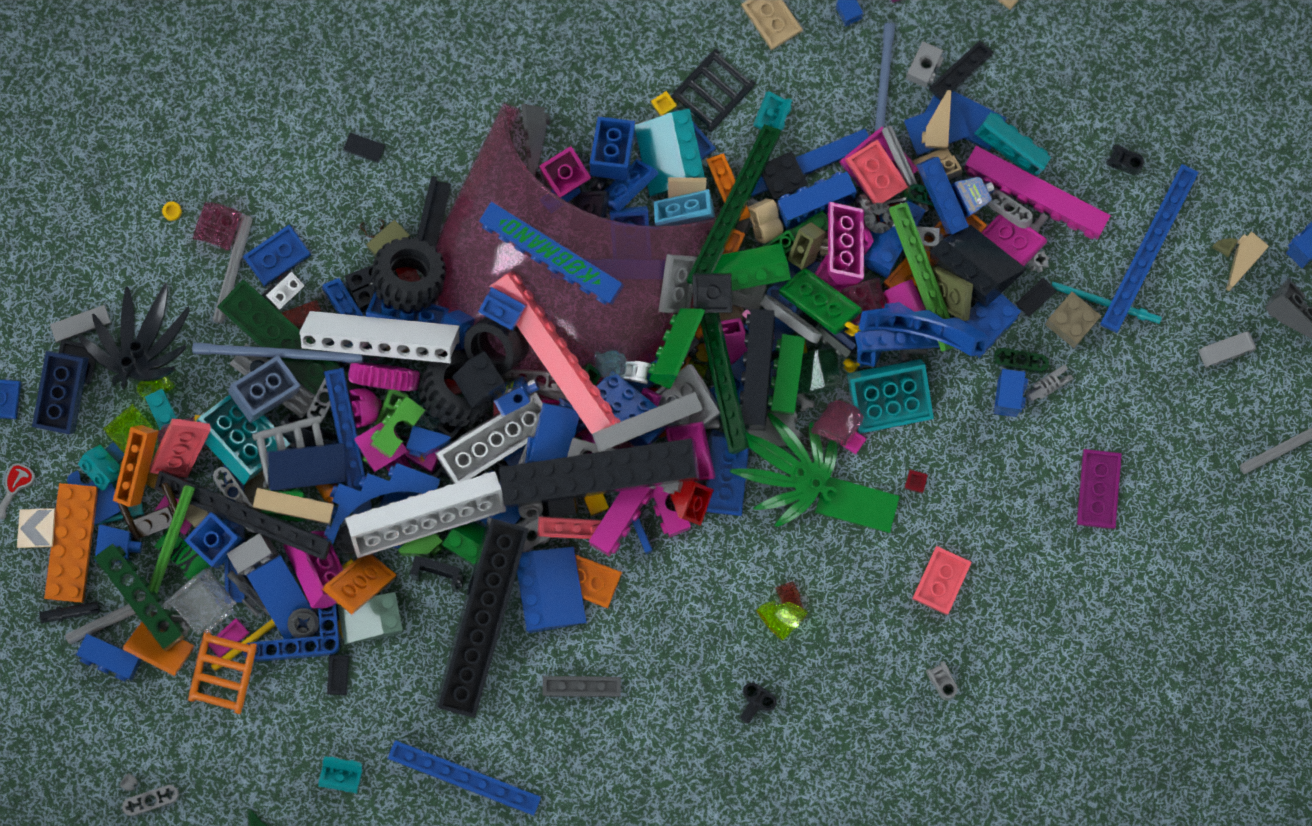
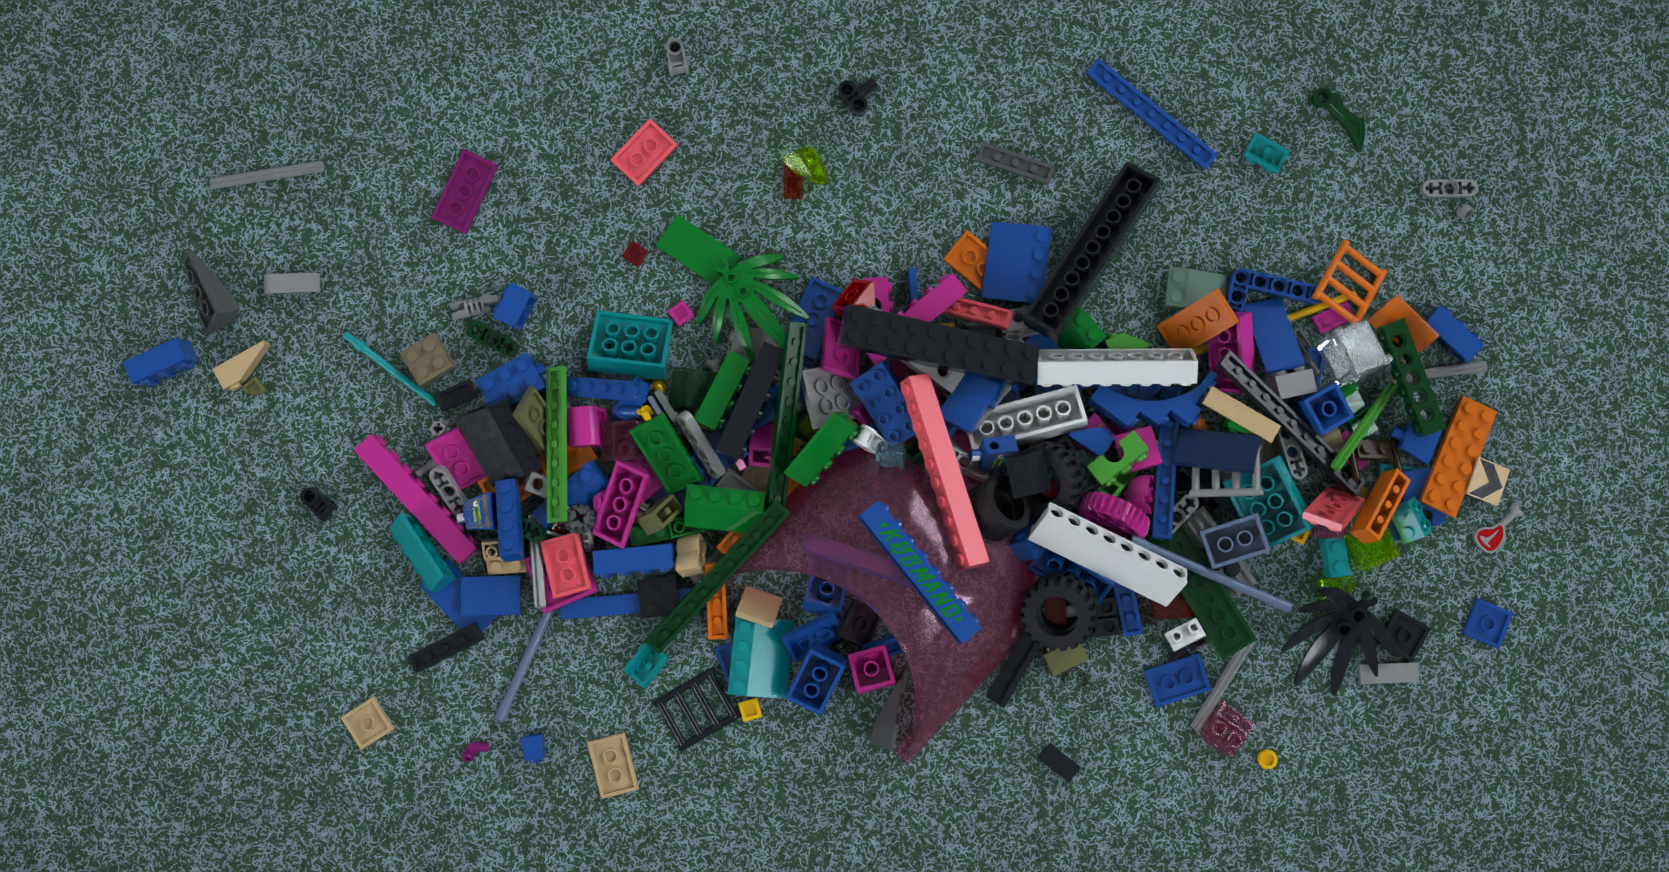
camera: 155 degrees left, 10 degrees up
(60, 392) = (1430, 607): dark blue brick -> none
(68, 612) = (1477, 390): black pin -> none
(302, 632) = (1262, 299): dark grey gear -> none
(338, 675) = (1239, 249): black tile -> none
(423, 564) = (1117, 315): black panel -> none
(502, 308) = (985, 533): blue plate -> none
(647, 422) = (876, 380): light grey tile -> none
(675, 290) = (803, 508): light grey tile -> none
(684, 209) = (767, 592): medium azure slope -> none
(712, 292) = (769, 490): black tile -> none
(839, 422) = (689, 332): clear pink slope -> none
(925, 54) = (475, 676): light grey brick -> none
(927, 324) = (572, 395): blue arch -> none
(938, 127) = (488, 593): tan slope -> none
(1149, 248) = (328, 406): blue plate -> none

